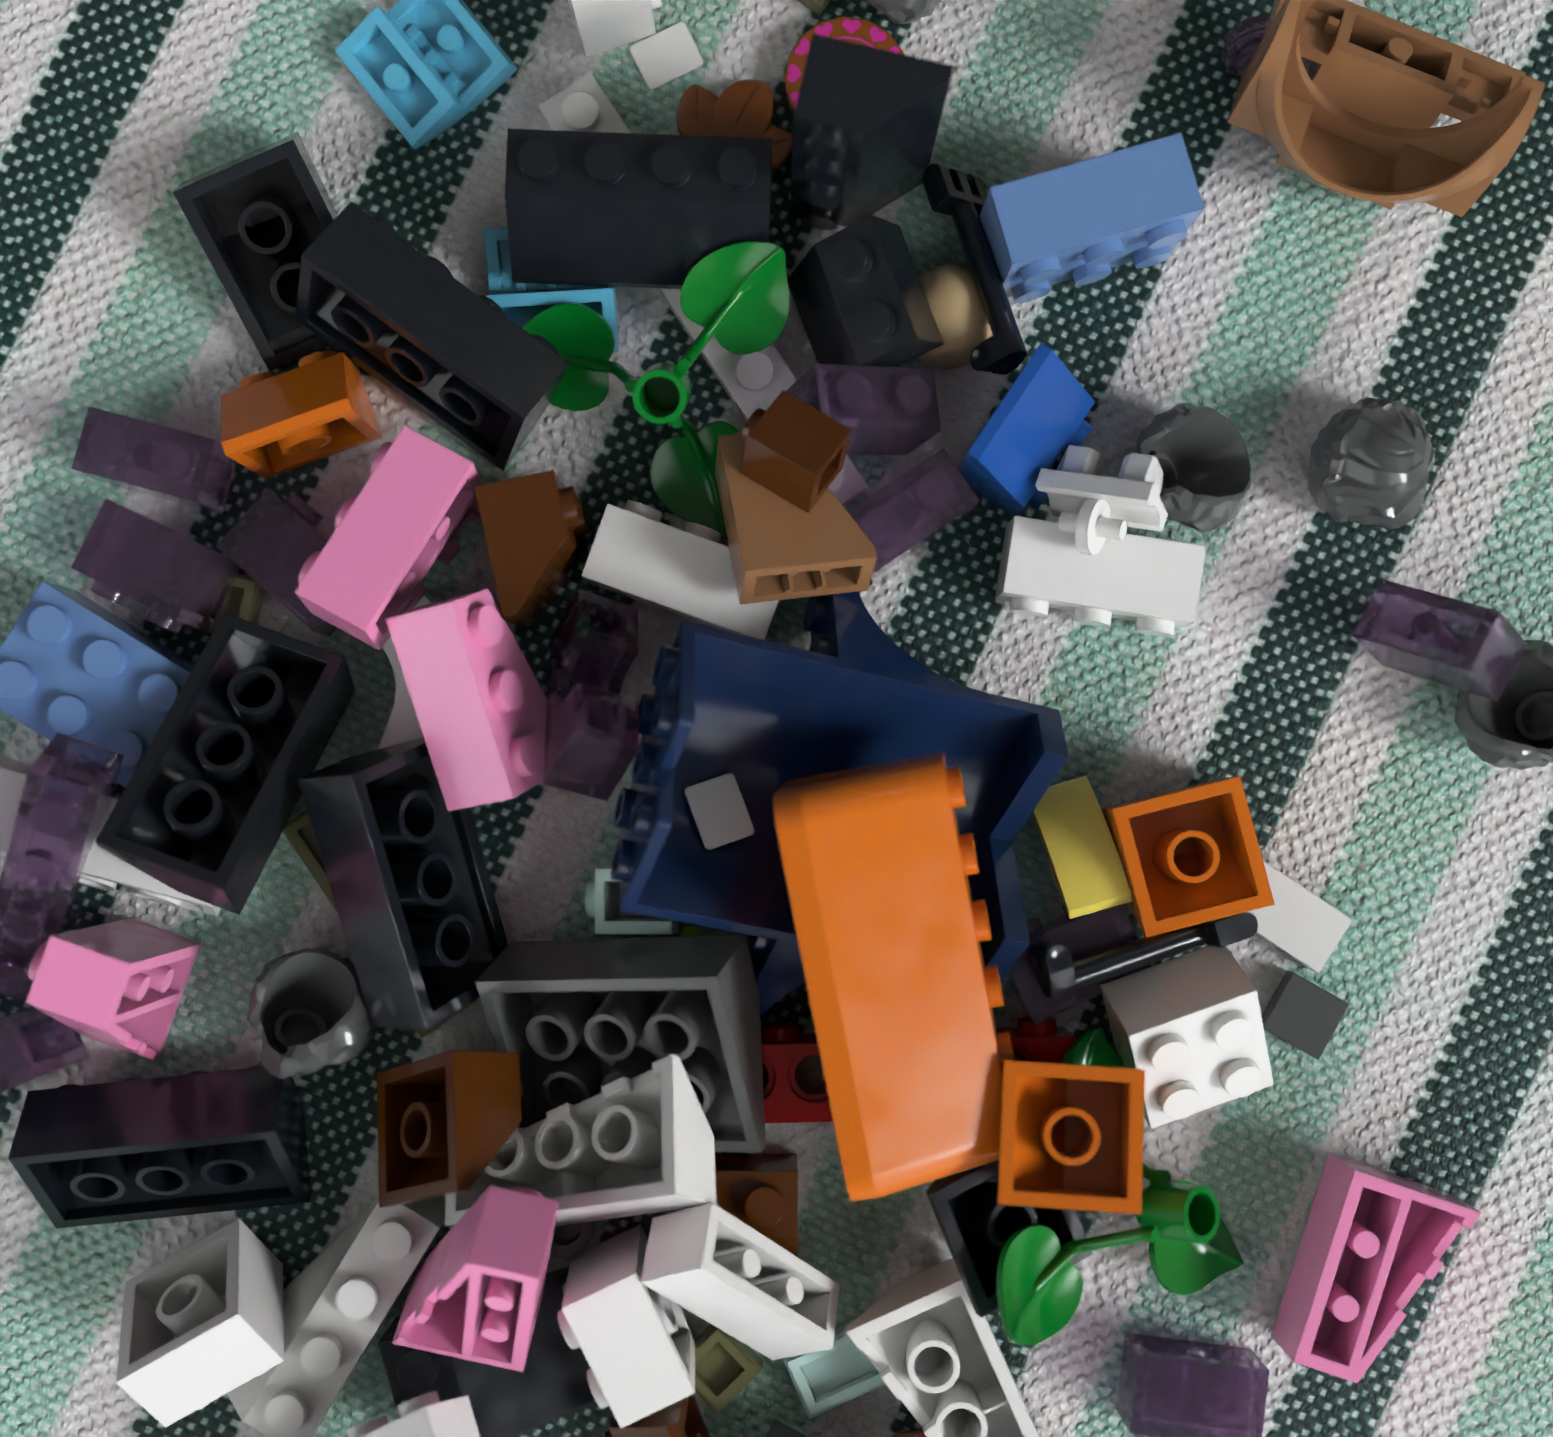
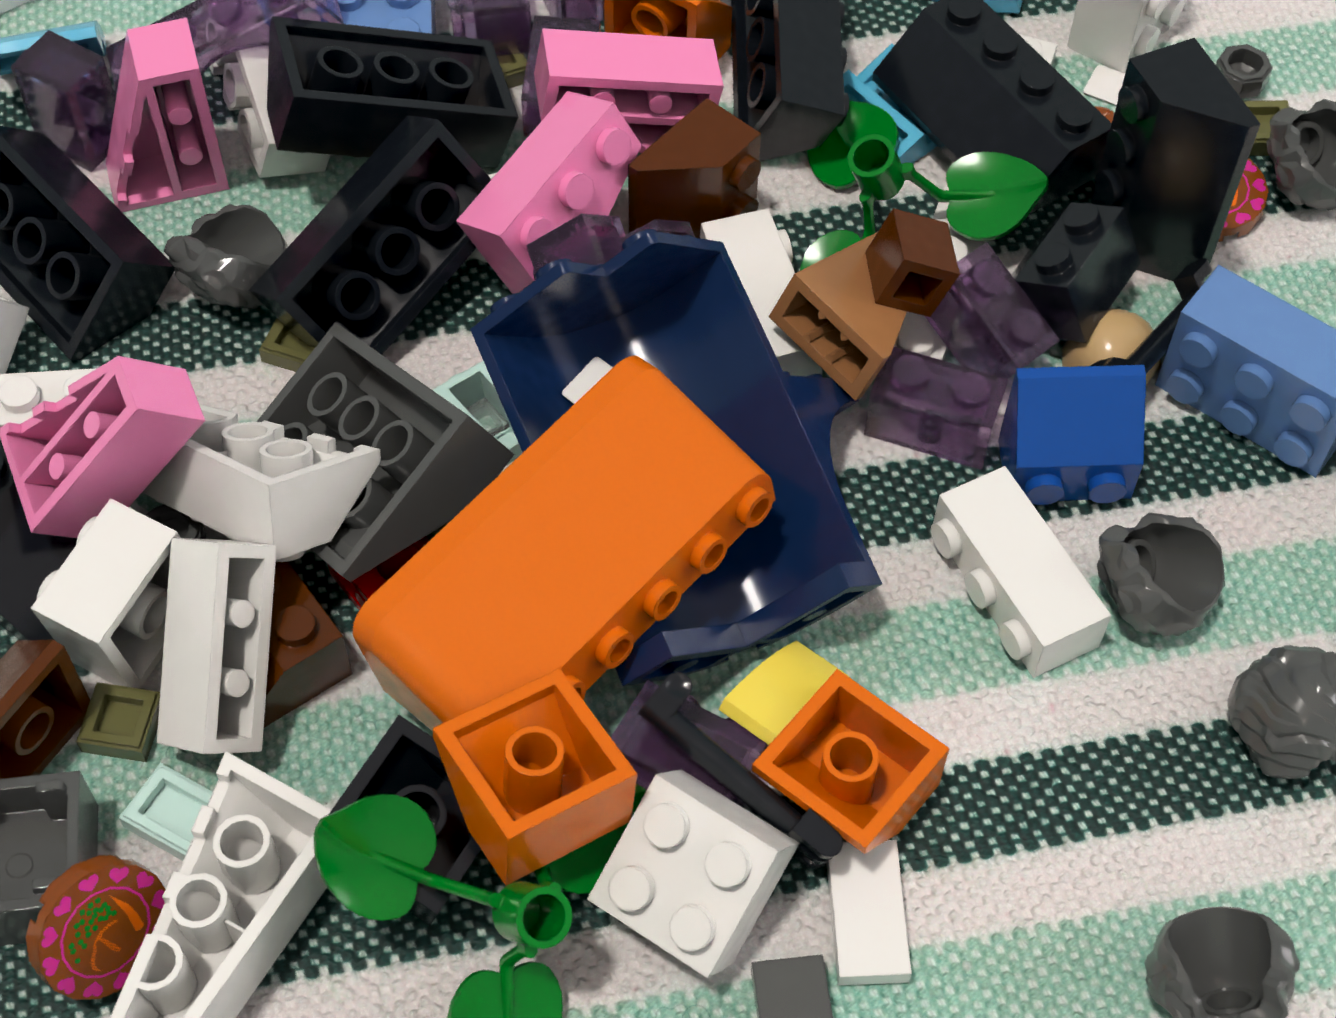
camera: 55 degrees right, 30 degrees down
(444, 1122) = (230, 362): reddish brown slope -> none
(1101, 505) = (1077, 506): white hips -> none
(1440, 639) = (1209, 844): clear purple brick -> none

